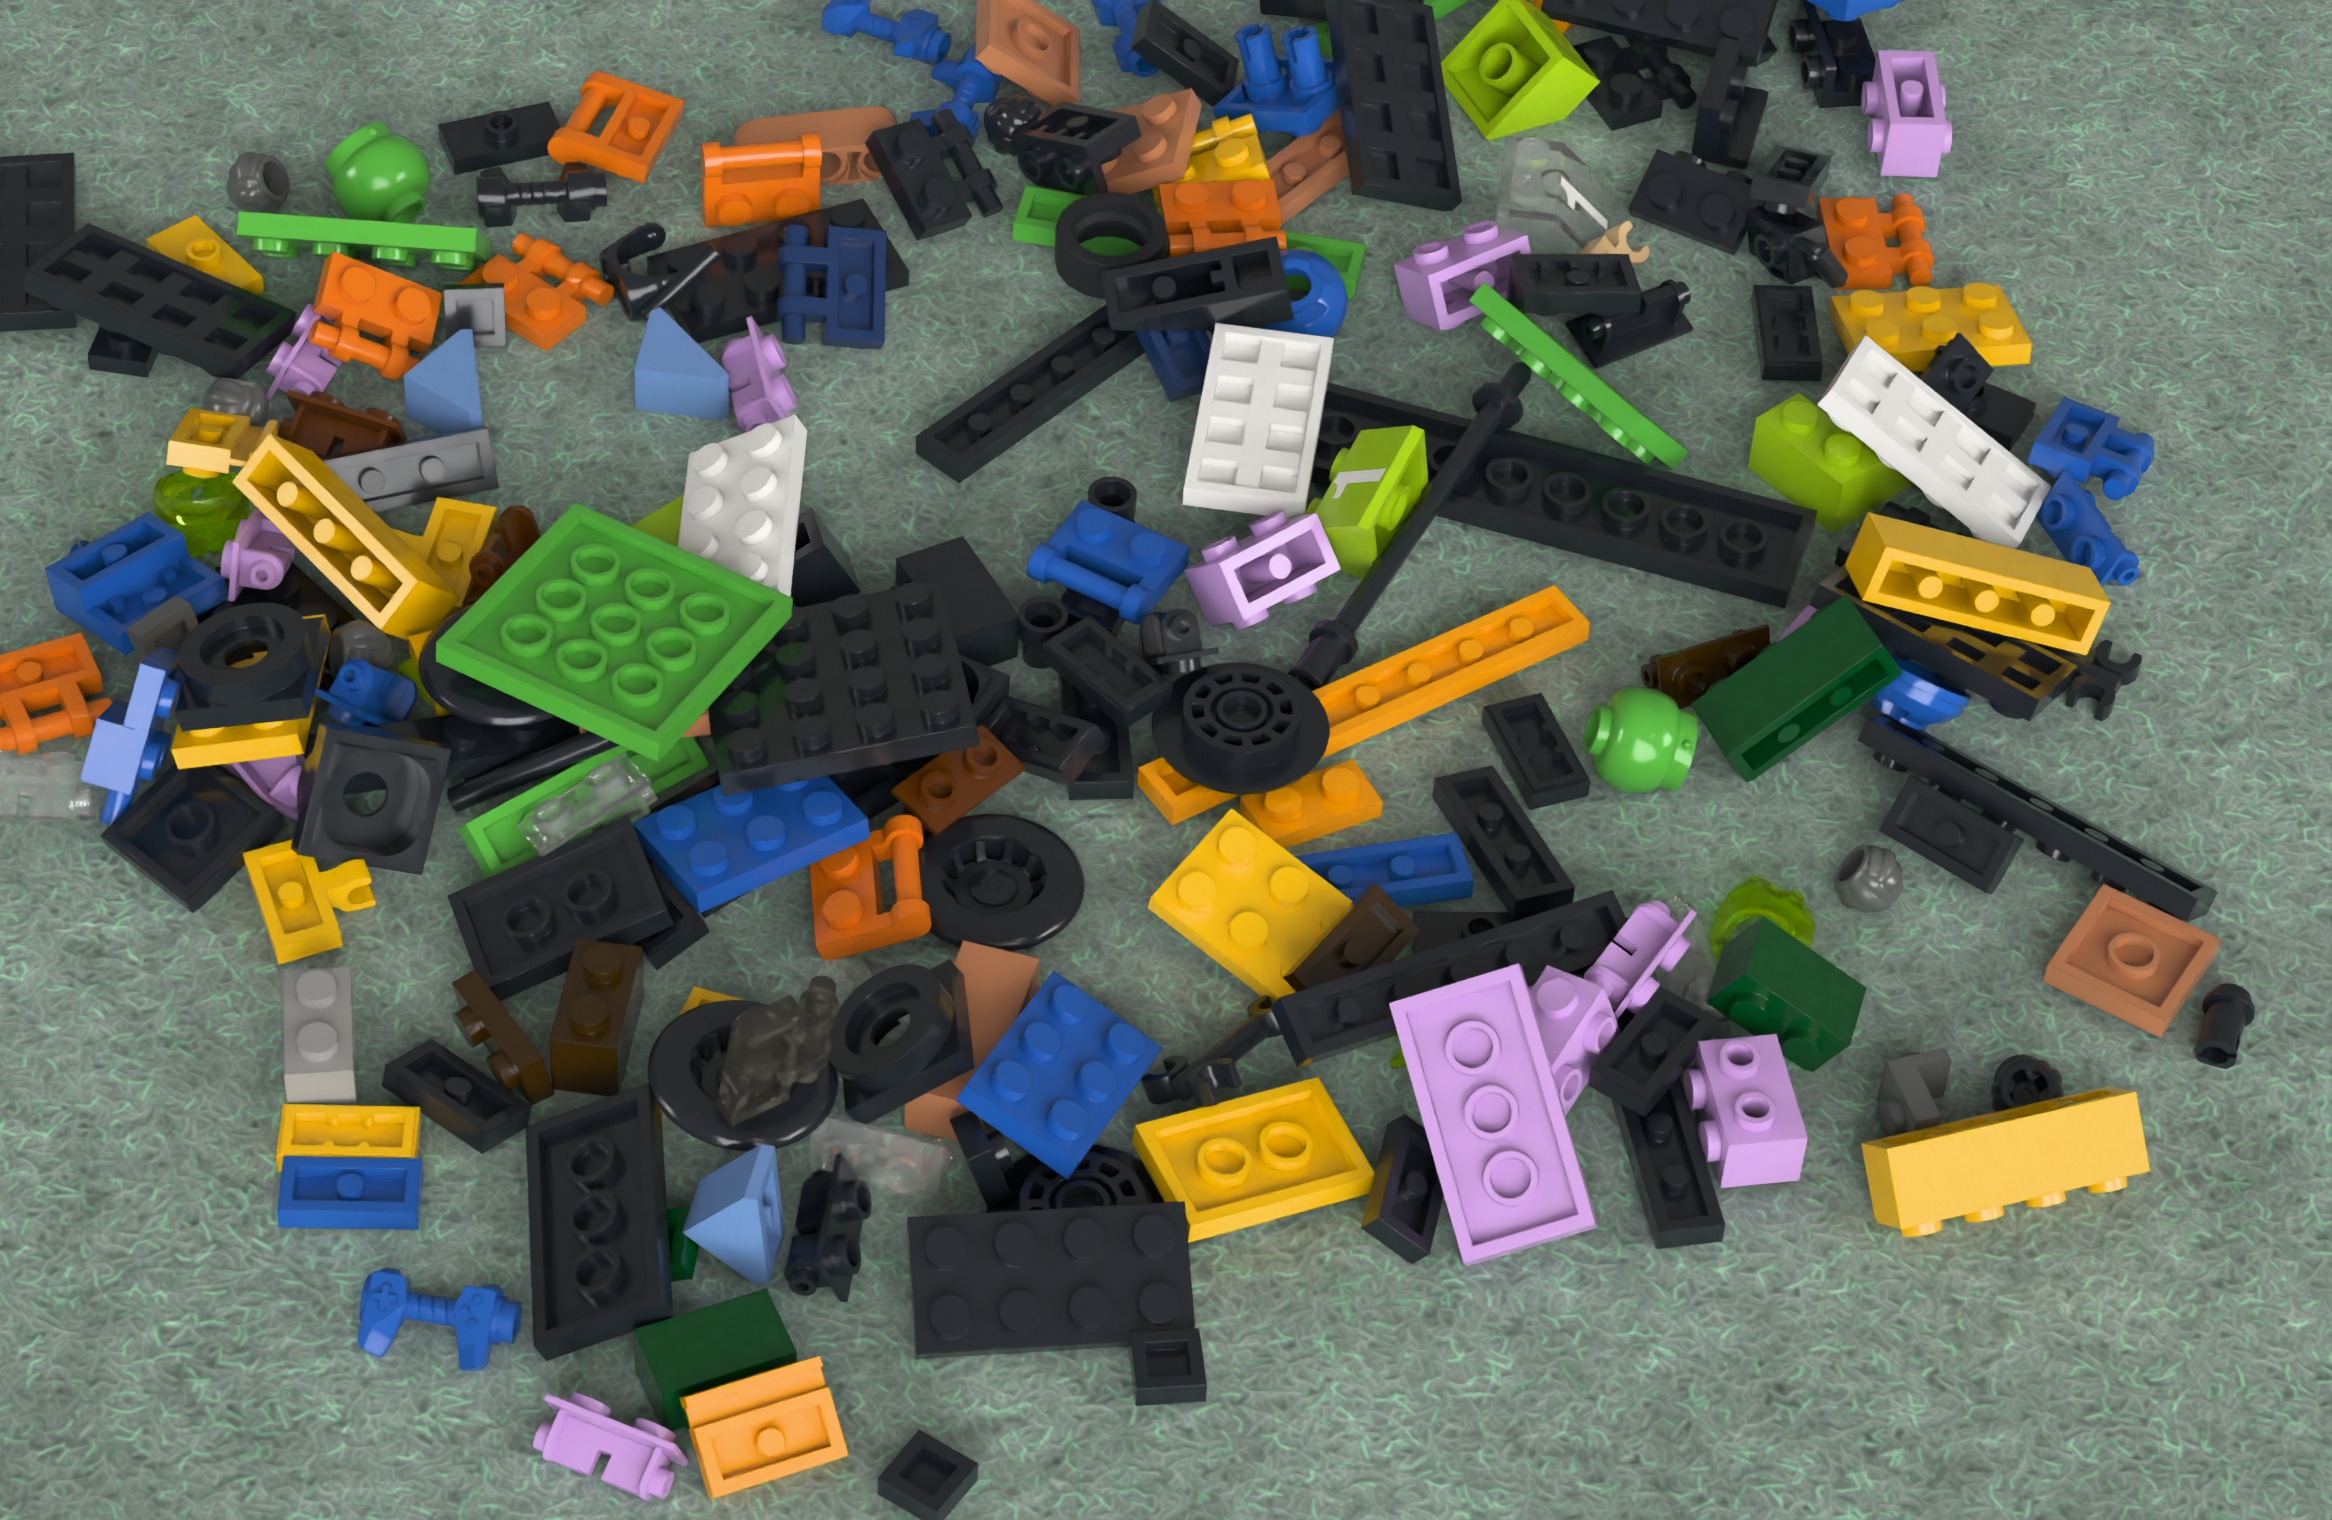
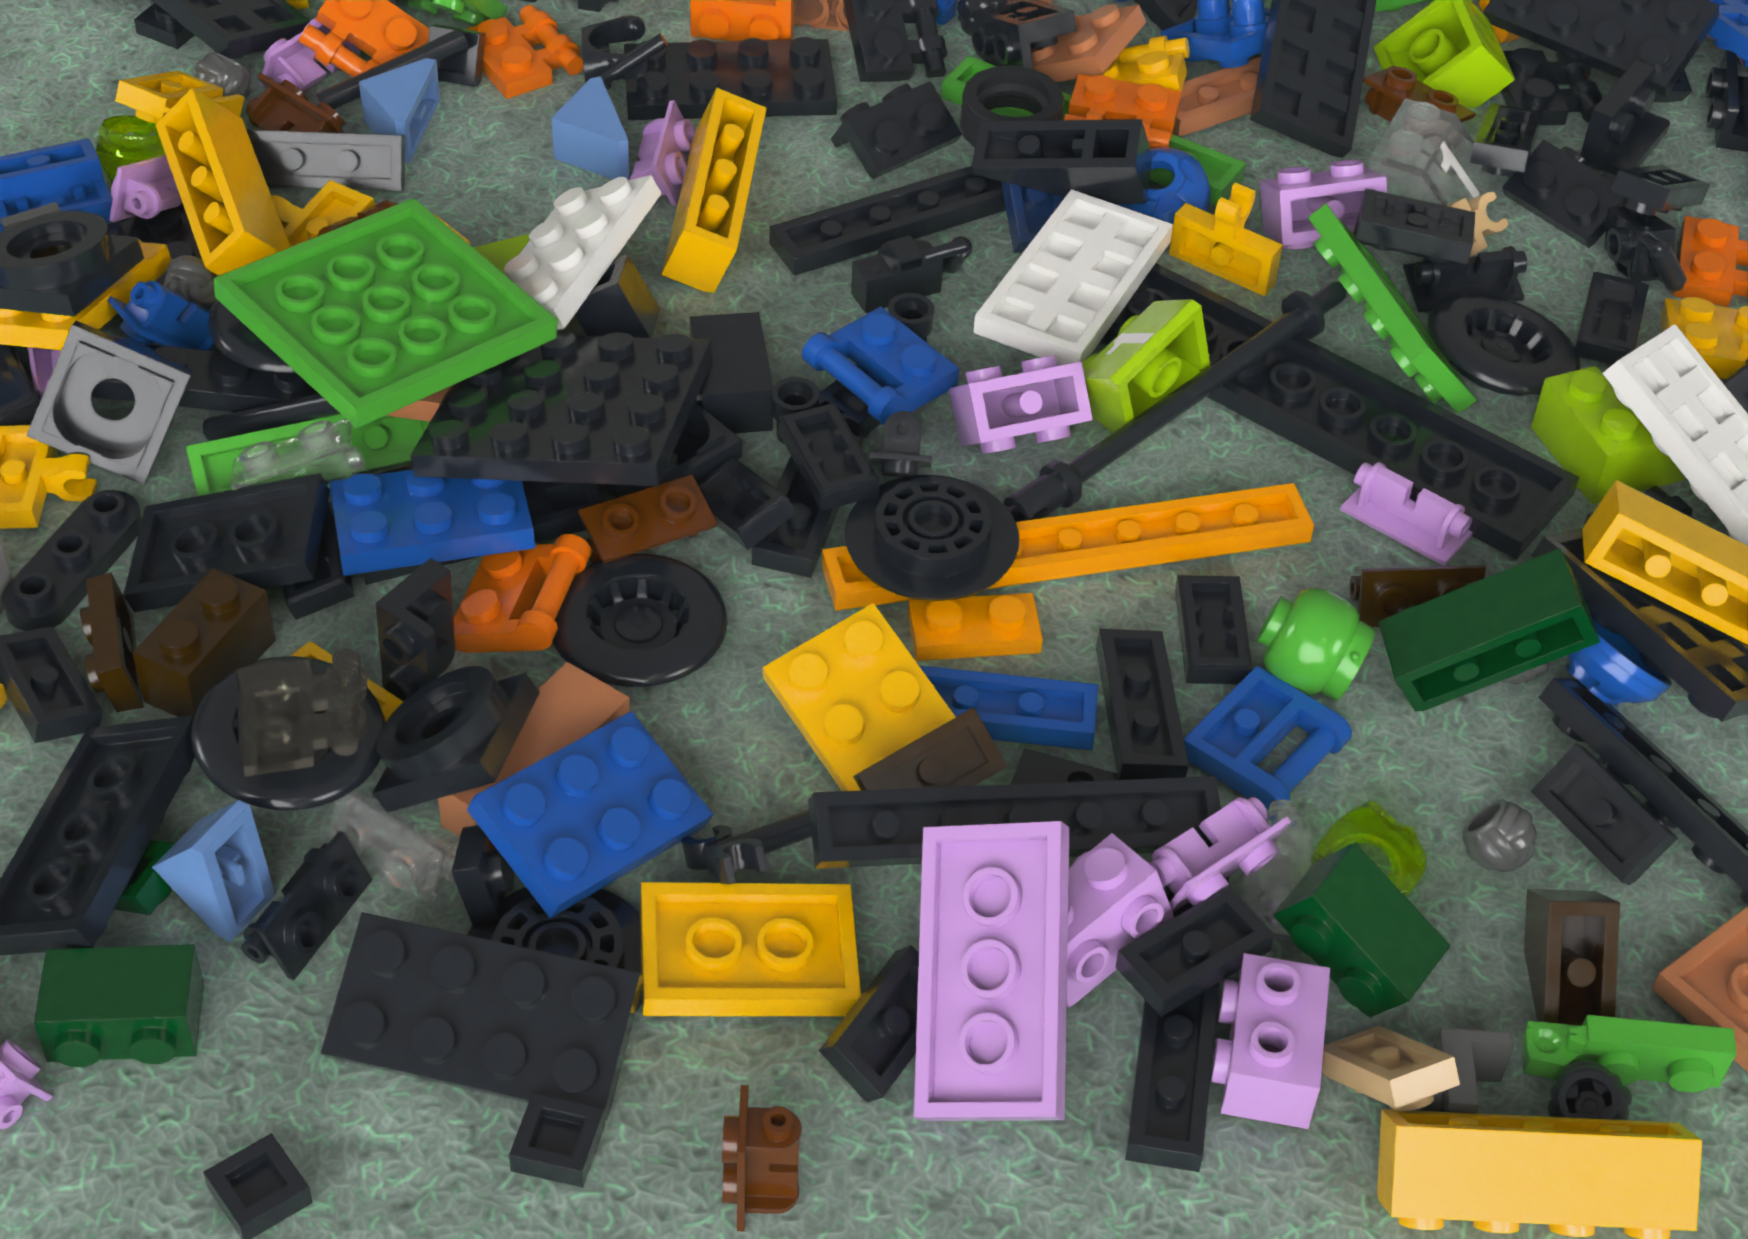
camera: 20 degrees right, 0 degrees up
(392, 378) = (436, 49): none -> black bar
(399, 986) = (78, 550): none -> black plate
(764, 1427) = (122, 1085): light orange plate -> none
(810, 943) = (416, 630): none -> black bracket
(844, 410) = (714, 192): none -> yellow brick
(852, 286) = (779, 85): dark blue plate -> none
(992, 290) = (898, 129): none -> black bracket
(1074, 452) = (905, 268): none -> black piece
(1362, 1327) = (760, 1159): none -> reddish brown hinge
(1385, 344) = (1224, 245): none -> yellow plate
(1485, 122) = (1397, 83): none -> reddish brown hinge
(1608, 835) = (1251, 724): none -> blue plate
(1618, 155) = (1506, 139): none -> black plate
(1694, 597) = (1426, 526): none -> lavender hinge
(1695, 386) = (1501, 343): none -> black wheel
(1857, 1106) = (1390, 1068): none -> tan plate
(1971, 975) = (1571, 954): none -> dark brown slope
(2053, 1034) = (1634, 1049): none -> bright green hinge

